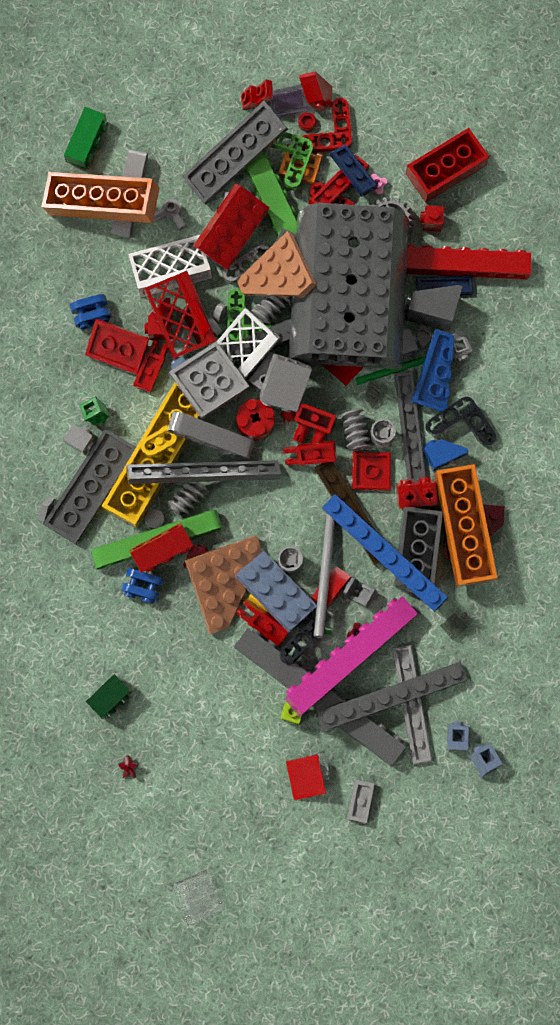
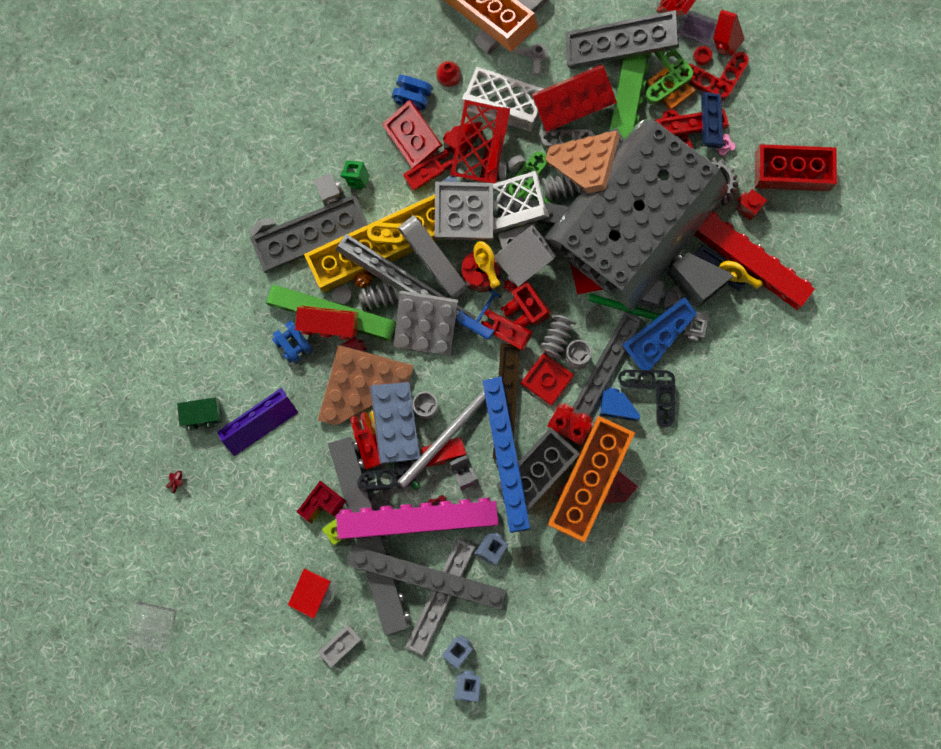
camera: 40 degrees right, 0 degrees up
(108, 275) = (448, 73): none -> red brick
(160, 670) = (257, 422): none -> dark purple panel
(163, 493) = (363, 279): none -> orange plate
(242, 493) = (425, 323): none -> light grey plate
(255, 408) = (485, 260): none -> yellow piece
(258, 696) = (321, 497): none -> dark red plate
(281, 468) = (474, 325): none -> blue piece
(431, 637) = (495, 554): none -> sand blue brick
(464, 280) = (740, 274): none -> yellow piece

